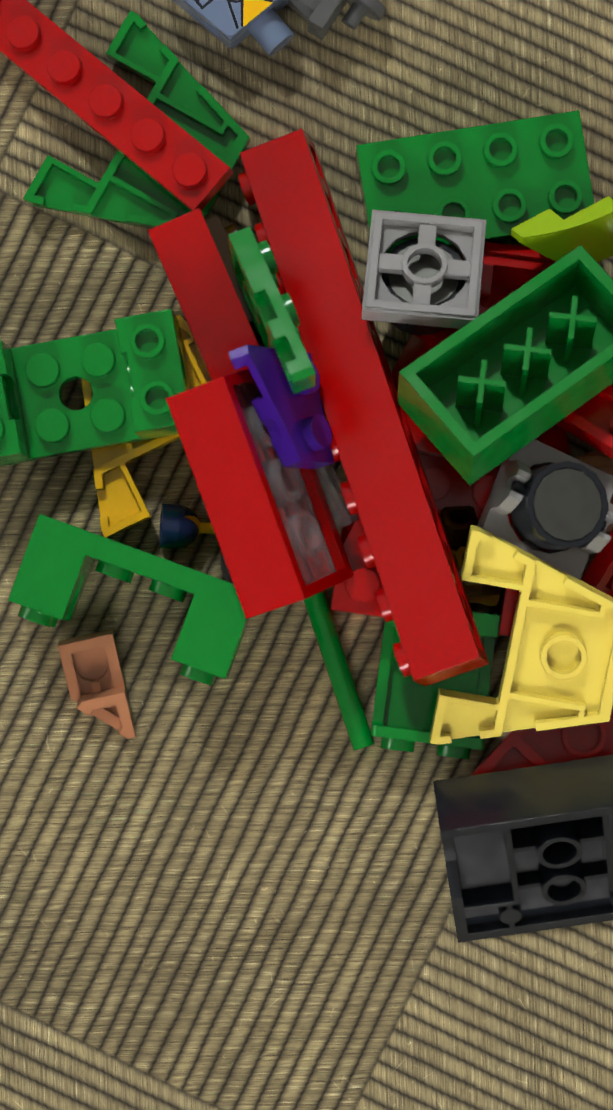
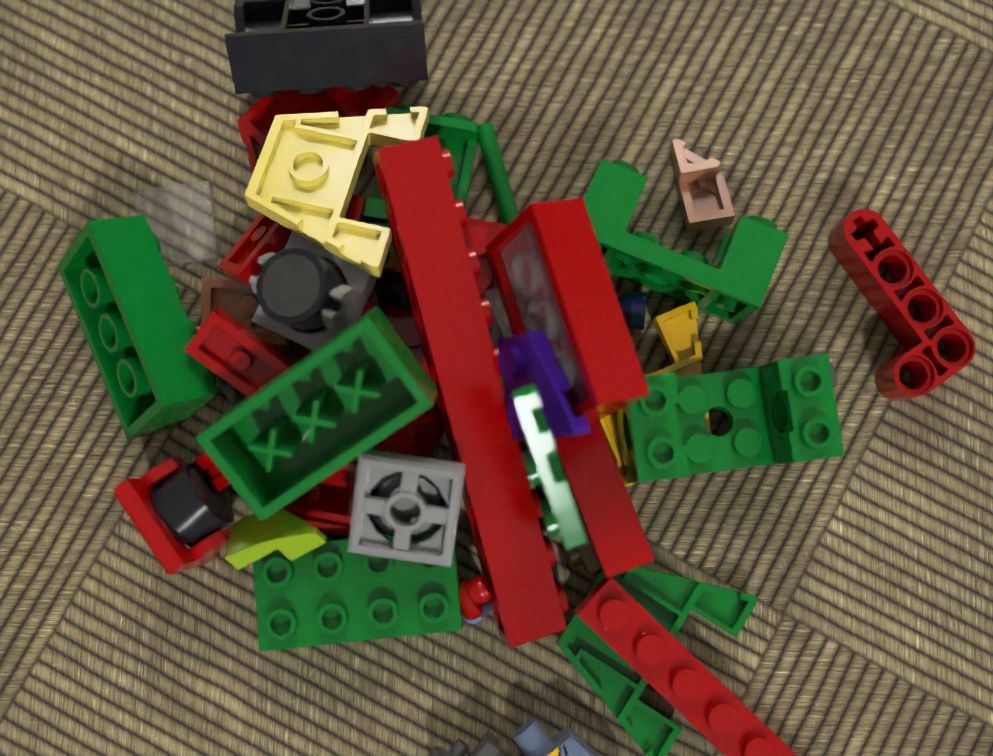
camera: 175 degrees left, 5 degrees down
(344, 180) = (474, 599): none -> red arm

